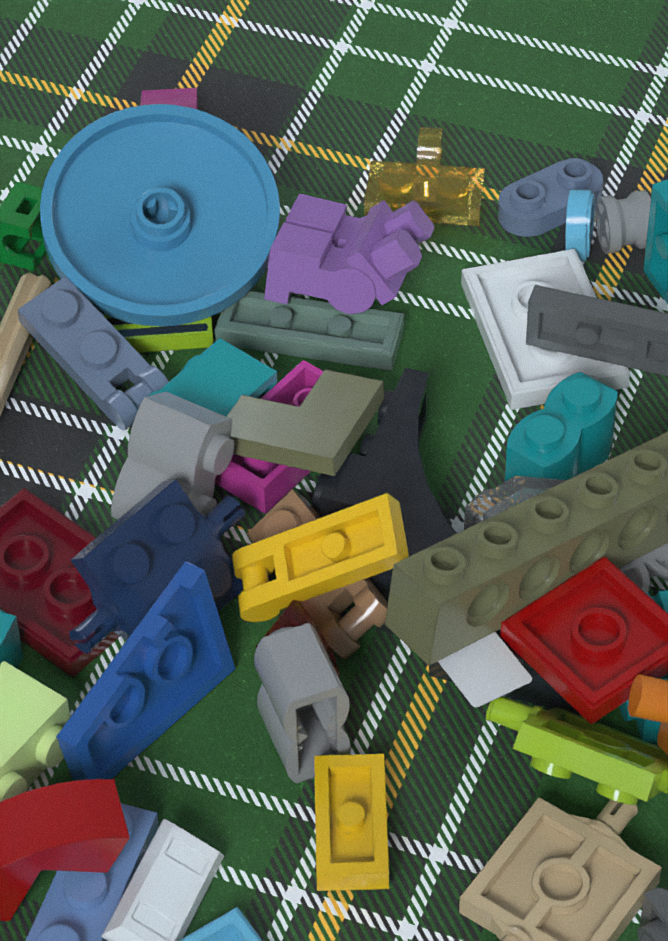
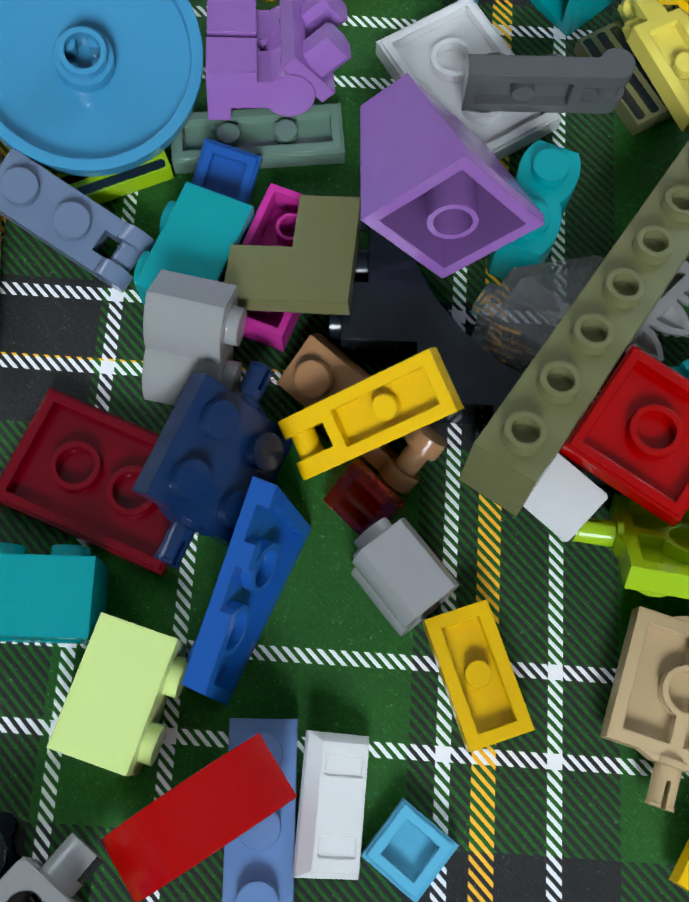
camera: 20 degrees left, 25 degrees up
(269, 343) = (227, 170): none -> blue tile
(457, 382) = (435, 182): none -> medium lavender slope

